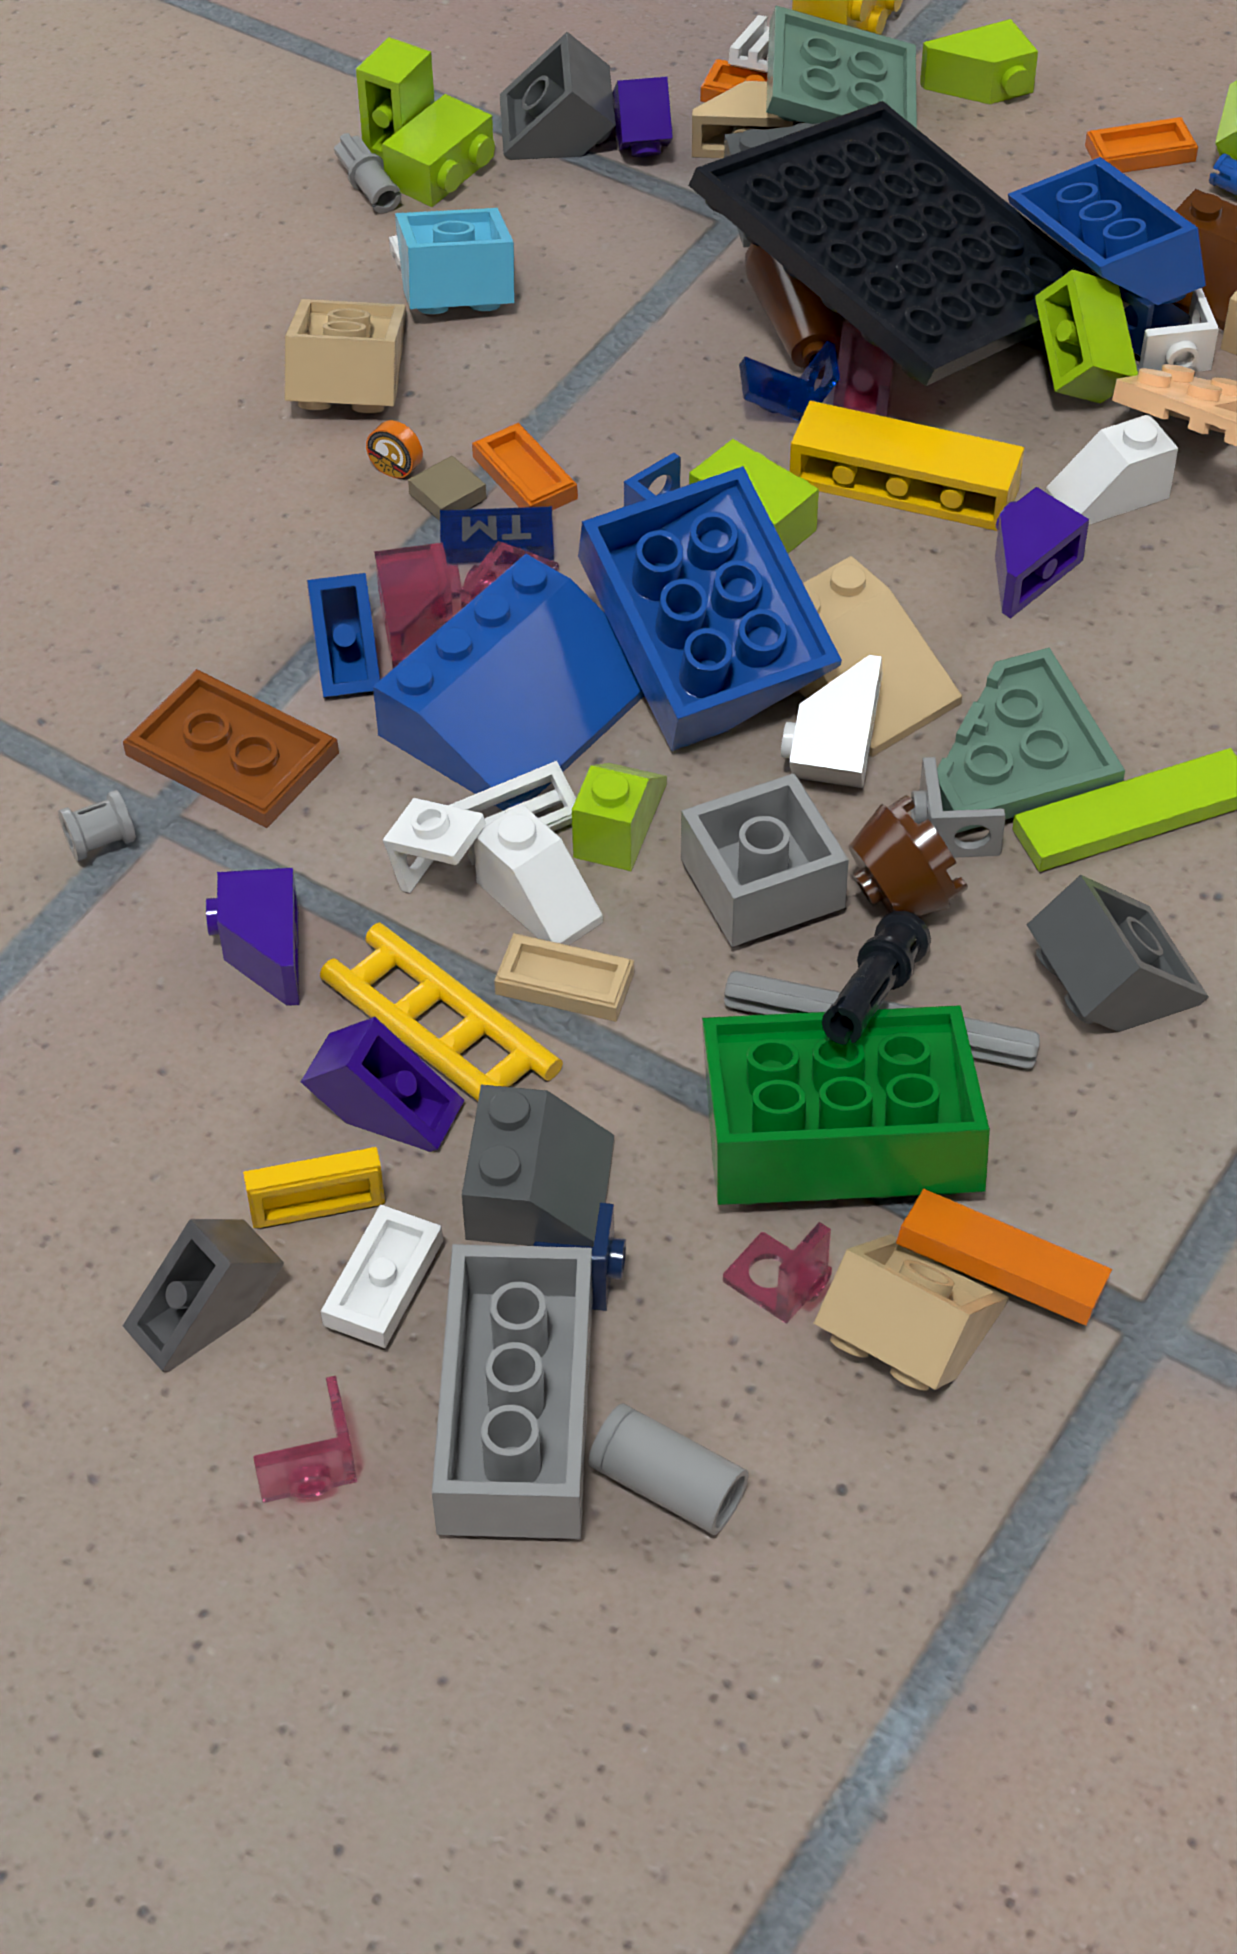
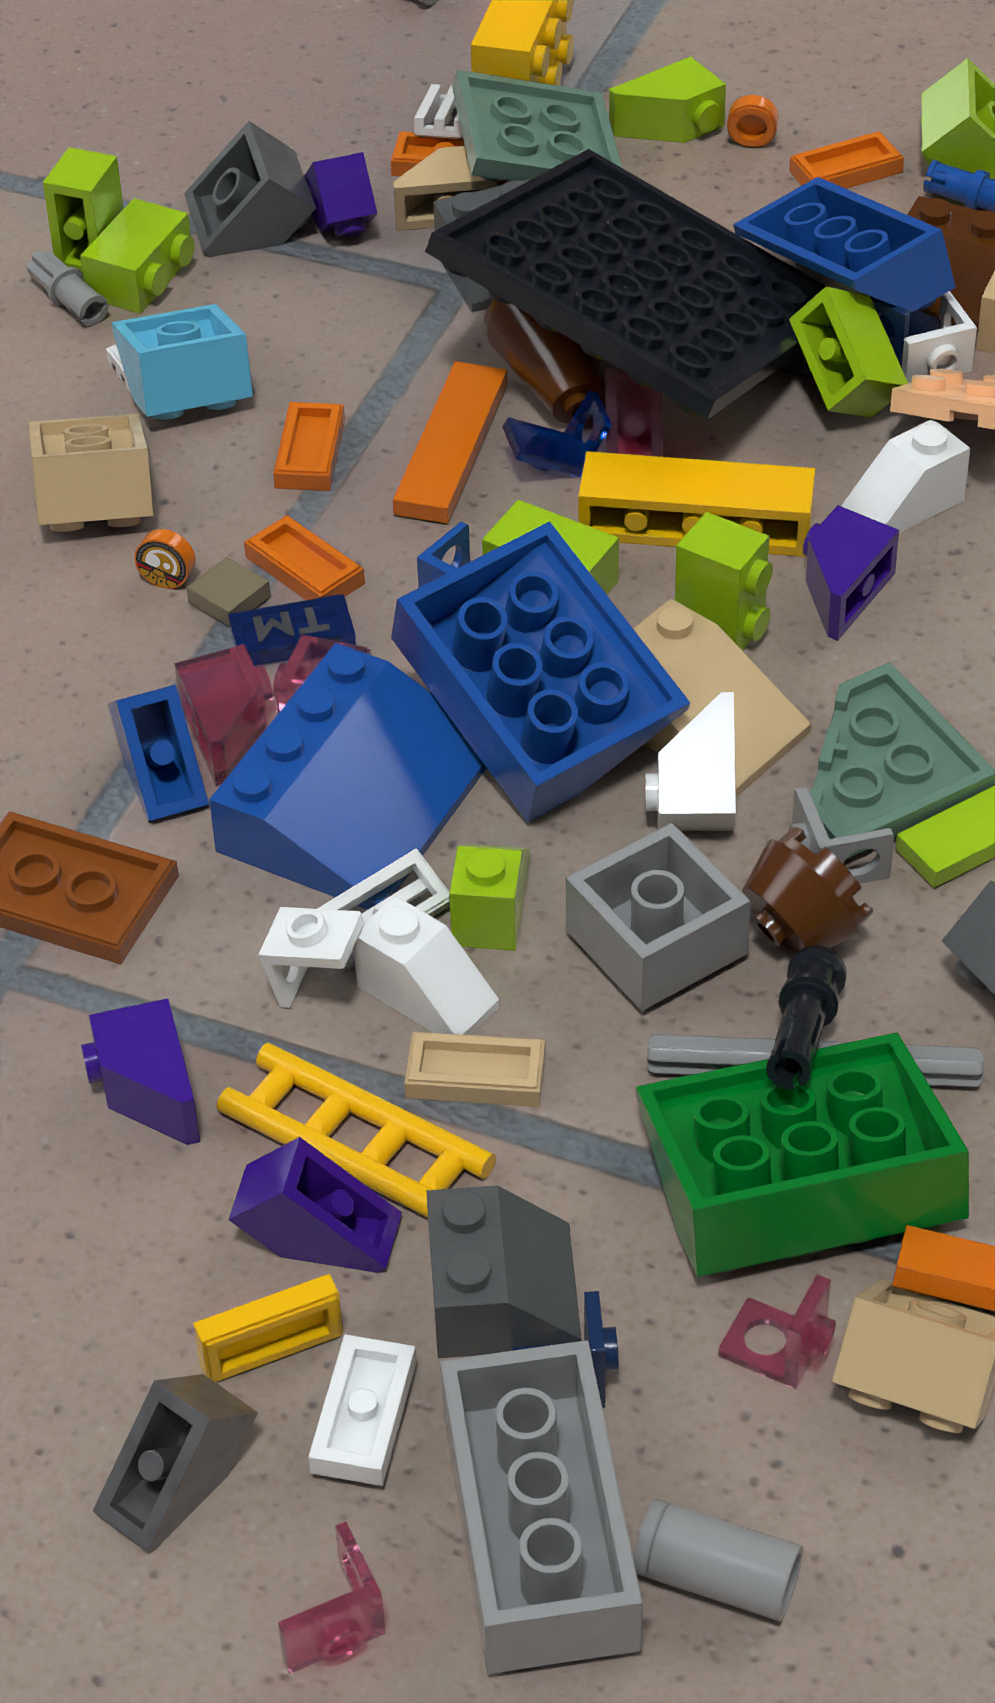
camera: 10 degrees left, 5 degrees down
(556, 358) = (309, 446): none -> orange tile
(690, 372) = (450, 442): none -> orange tile
(907, 544) = (725, 576): none -> lime brick
(1058, 91) = (752, 121): none -> orange tile

